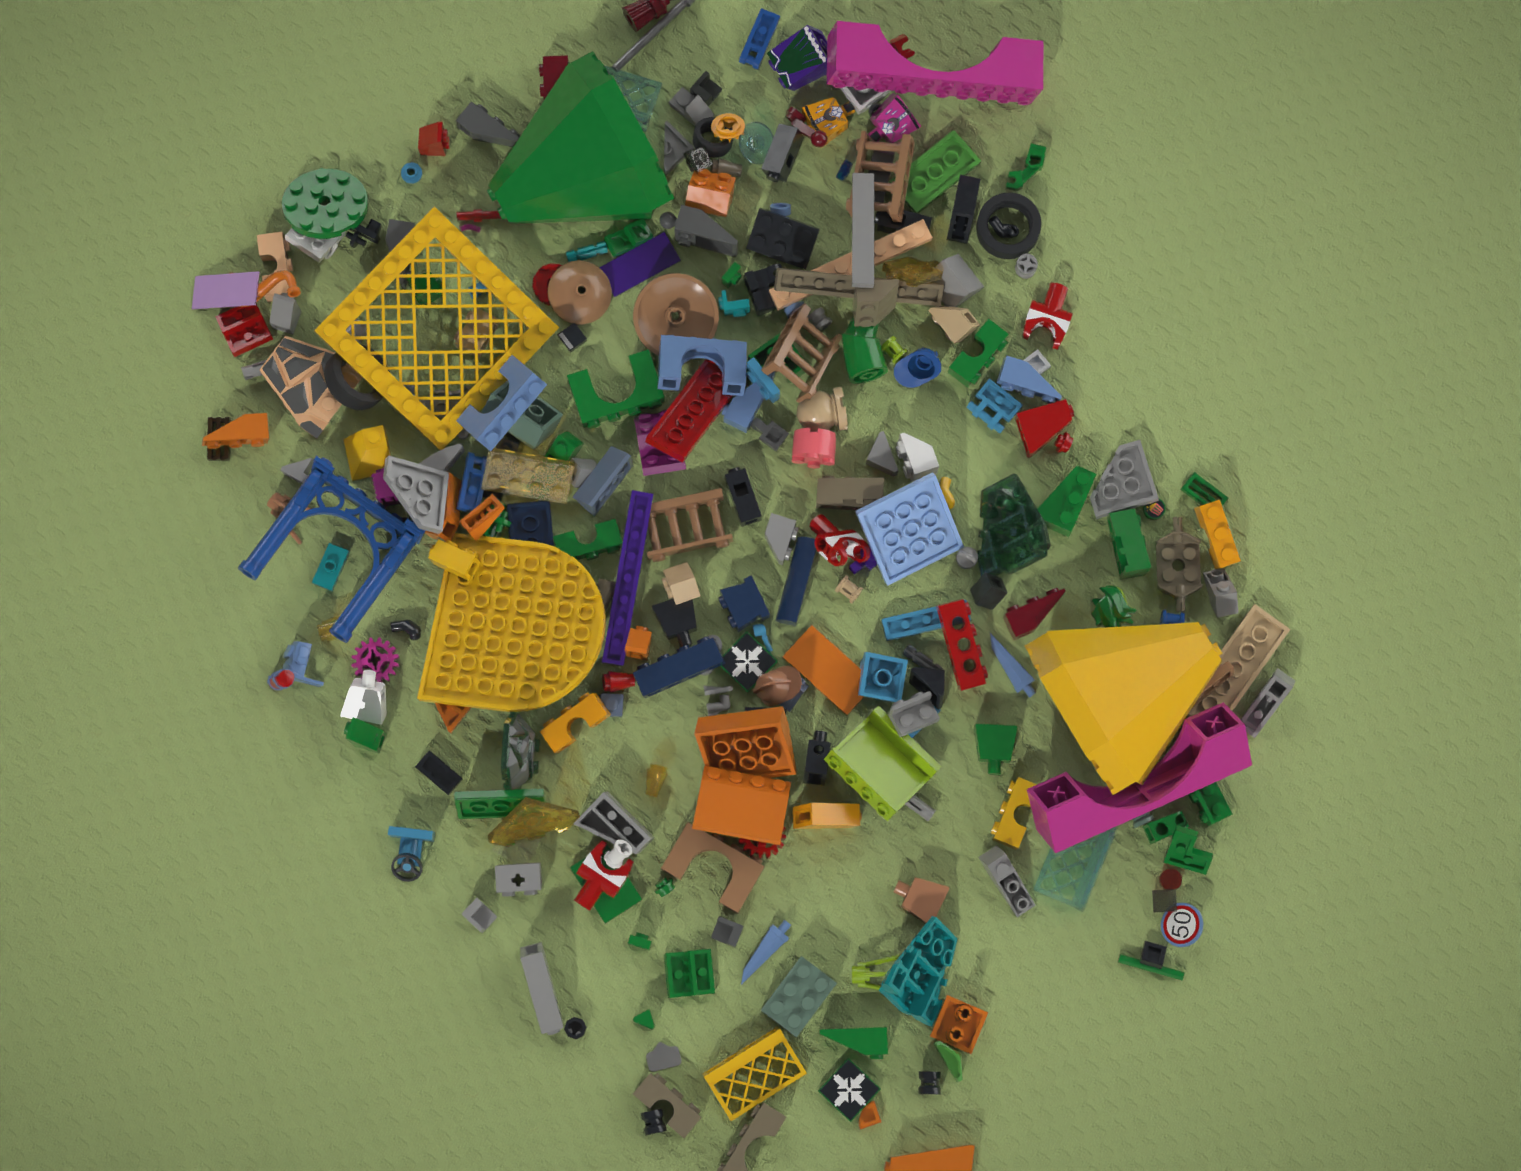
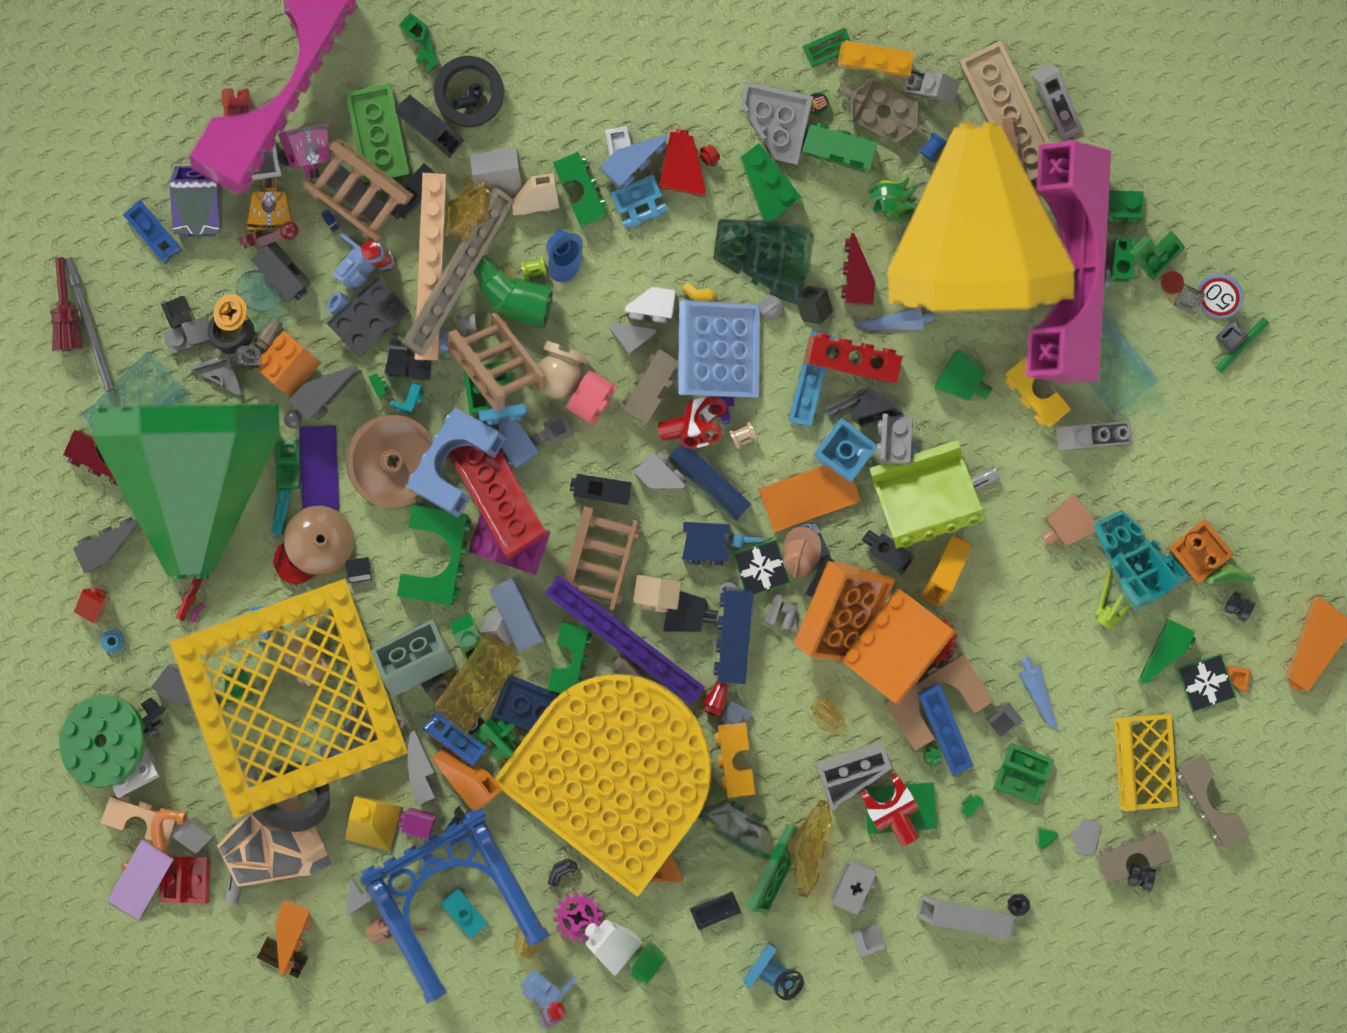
camera: 60 degrees left, 10 degrees up
(419, 490) = (441, 795): light grey plate -> none
(454, 560) = (518, 798): yellow brick -> none
(477, 522) = (488, 749): orange slope -> none
(492, 426) = (397, 648): medium blue arch -> none
(616, 856) = (882, 781): white bush -> none
(638, 643) = (691, 661): orange slope -> none
(692, 884) = (945, 729): none -> blue plate
(798, 996) = (1099, 685): sand green brick -> none
(824, 210) = (361, 262): none -> medium blue piece
(863, 230) = (407, 240): light grey tile -> none
(875, 303) = (481, 266): dark tan slope -> none
(1026, 261) = (517, 92): light grey wheel -> none
(1049, 314) = (578, 100): red connector -> none

